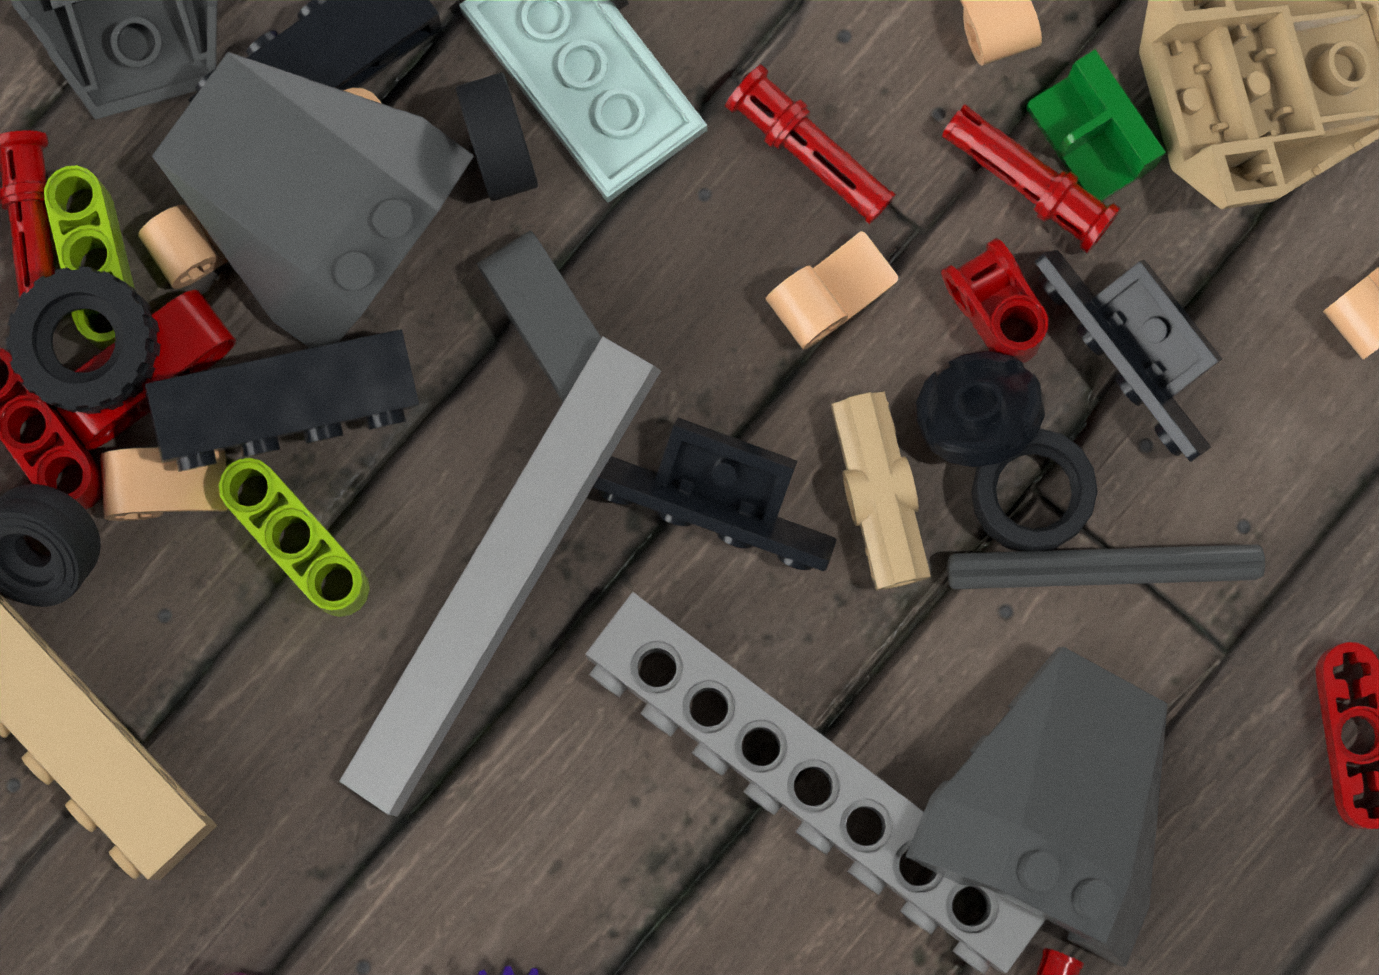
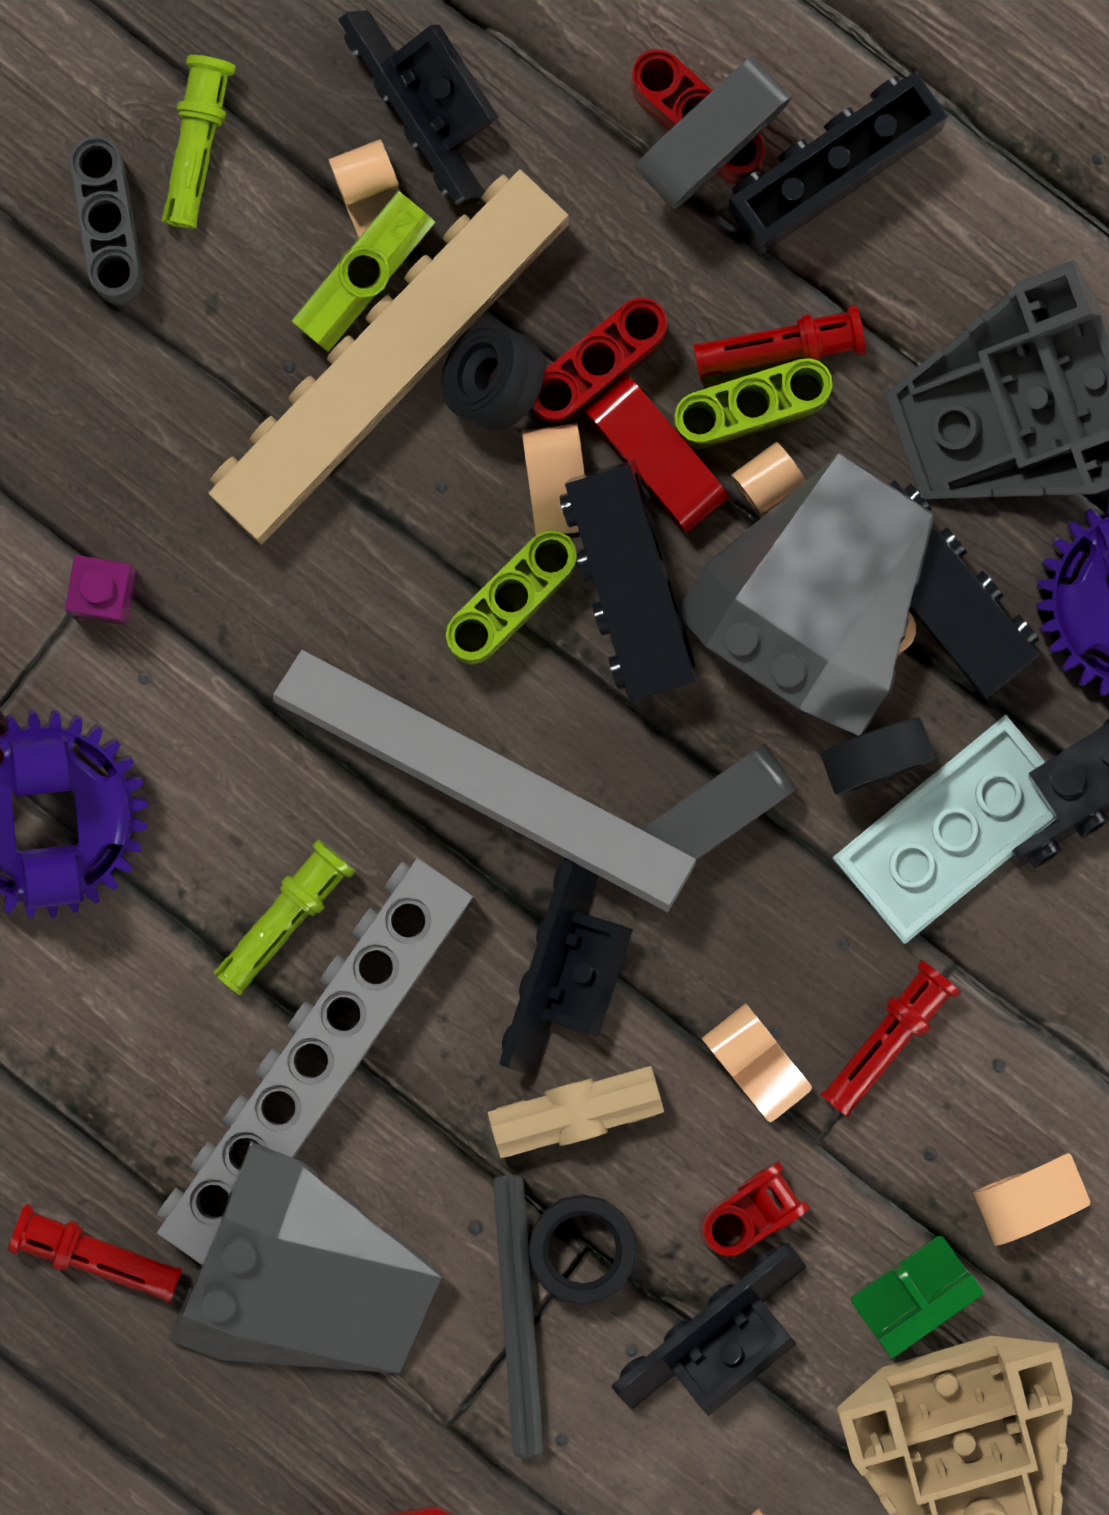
camera: 90 degrees right, 5 degrees up
(33, 332) = (664, 362): black tyre -> none
(625, 794) = (300, 897): none -> lime pin
(980, 409) = (652, 1198): black tile -> none
(1054, 194) = (855, 1260): red pin -> none

